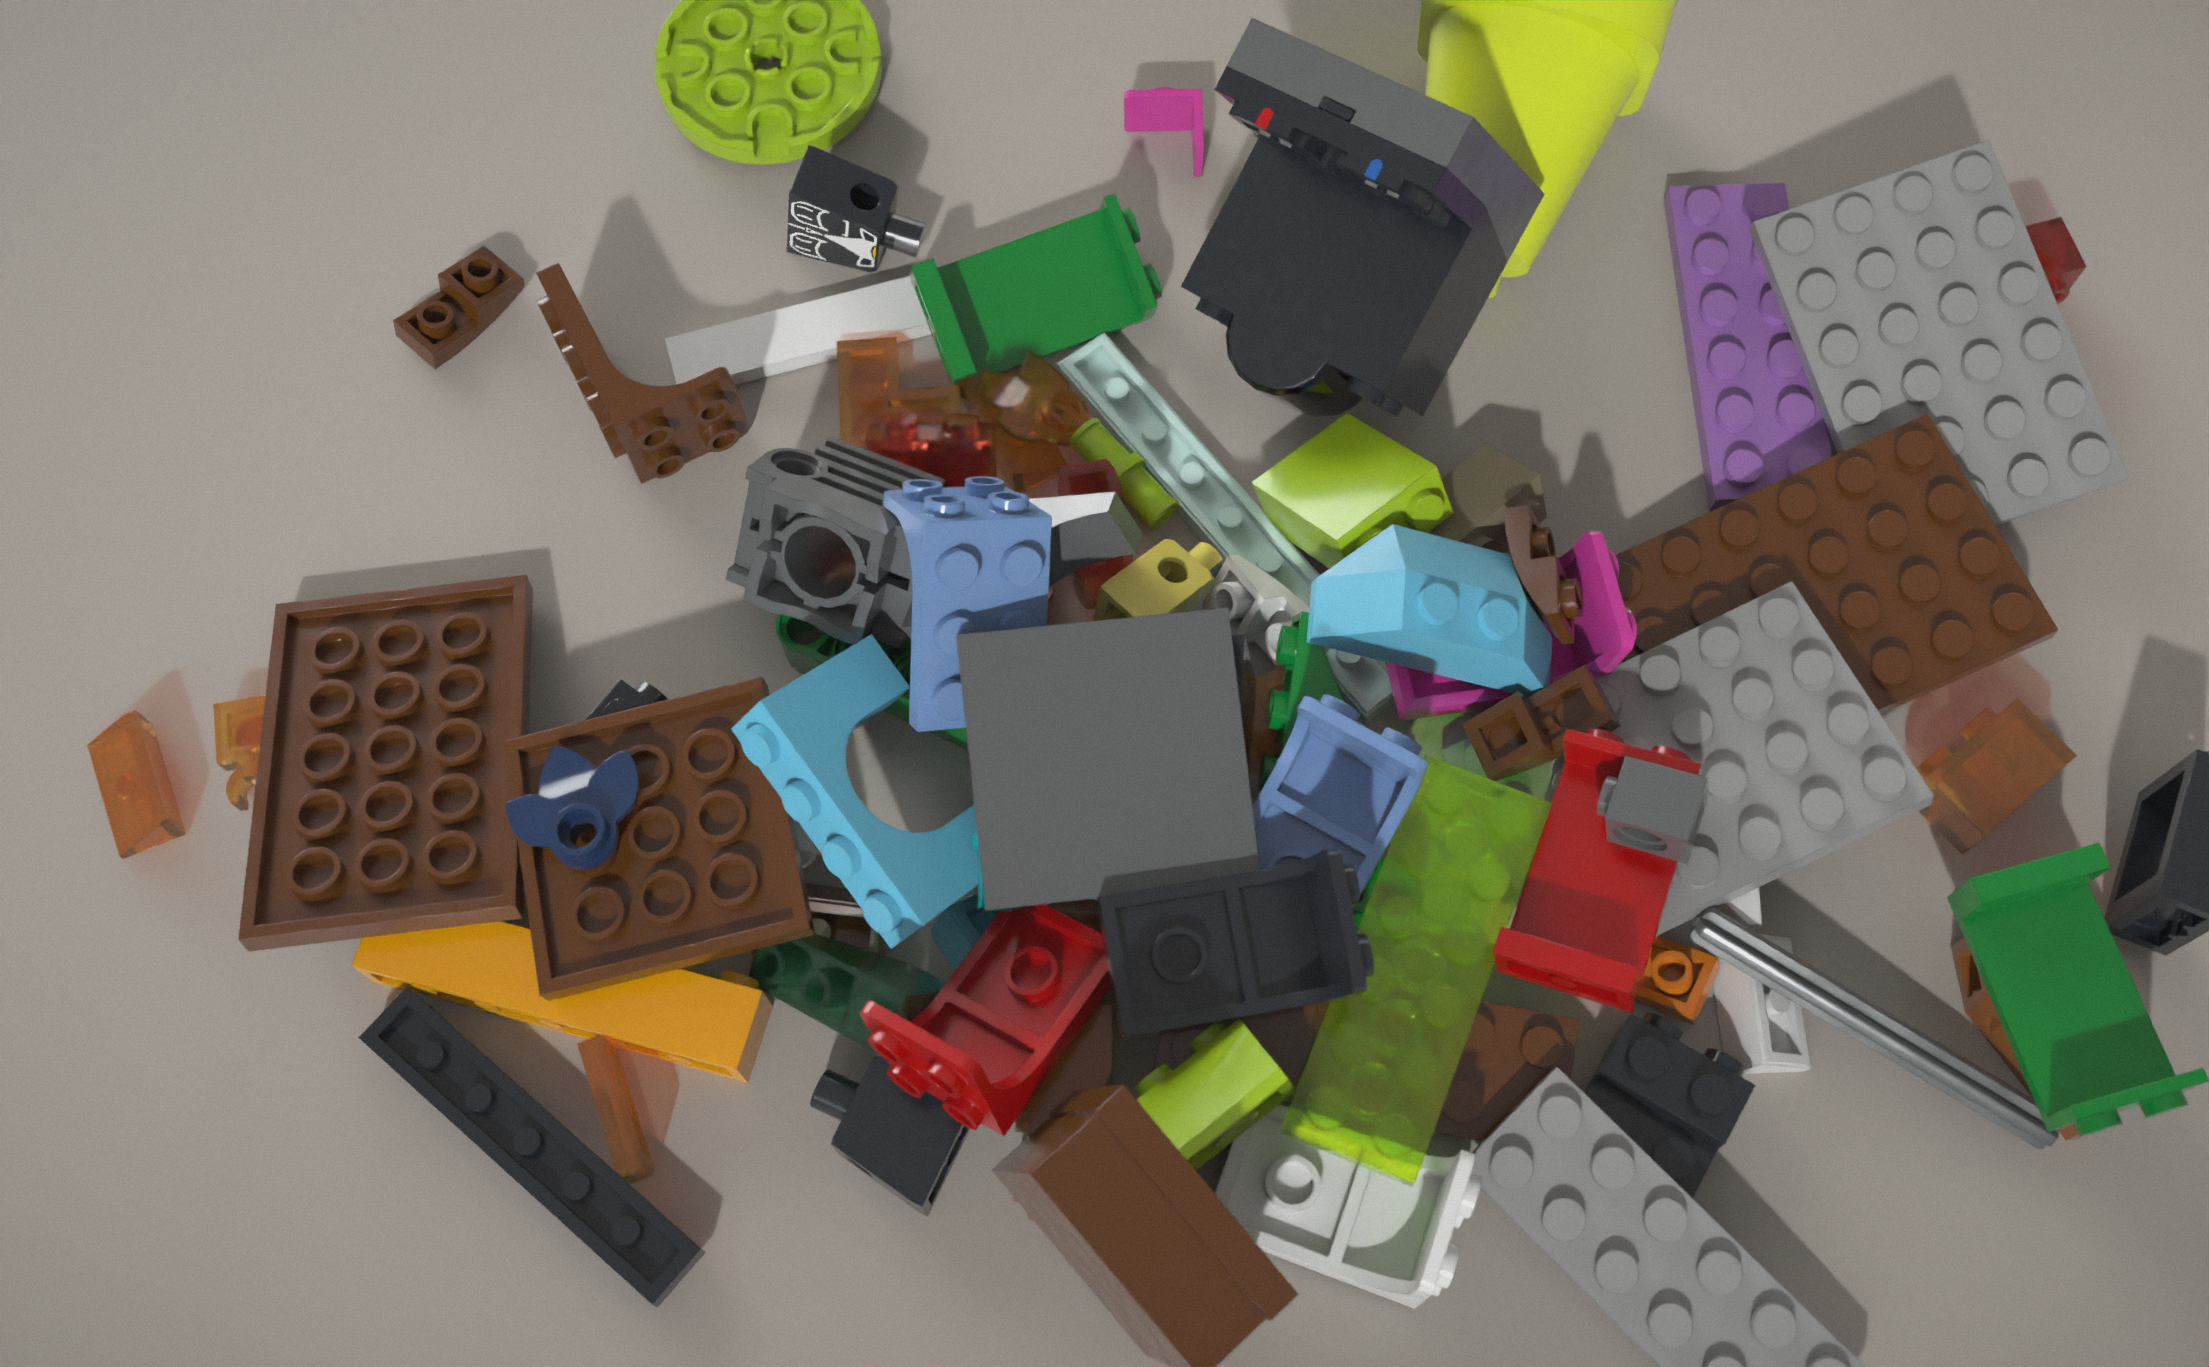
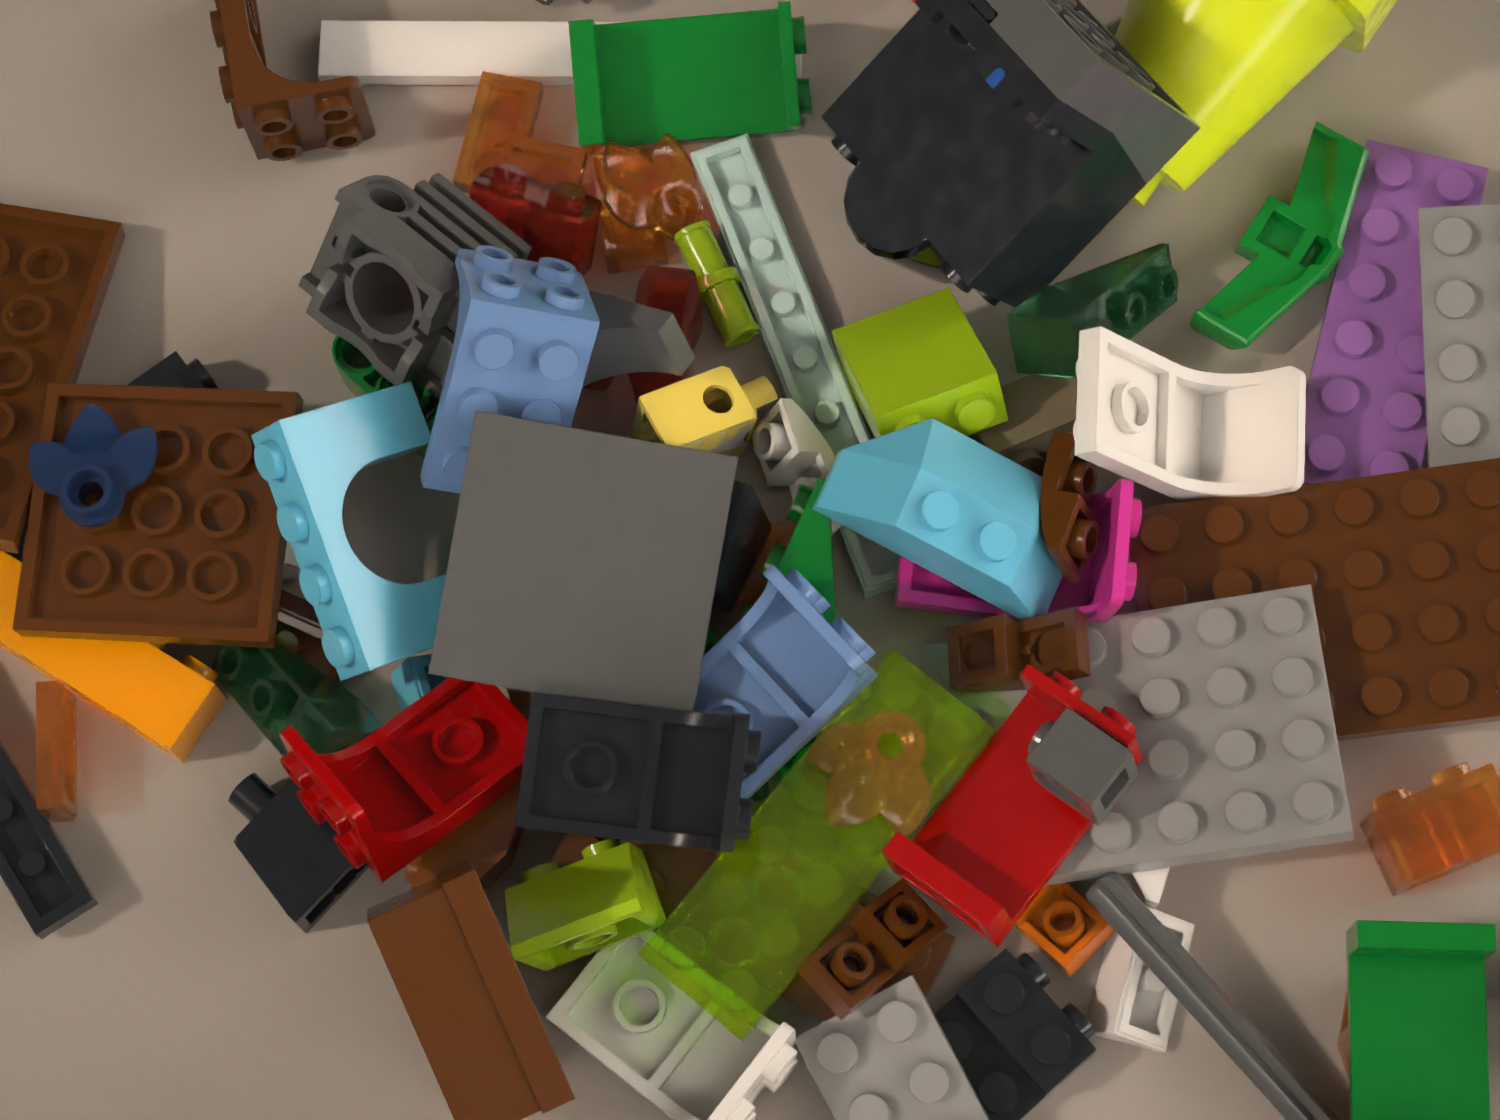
camera: 20 degrees right, 5 degrees up
(1457, 887) = (869, 781): none -> clear orange plate
(1487, 401) = (1115, 296): none -> clear green slope
(1509, 1053) = (872, 948): none -> reddish brown slope
(1627, 474) = (1187, 427): none -> white bracket
(1636, 294) = (1289, 244): none -> green plate

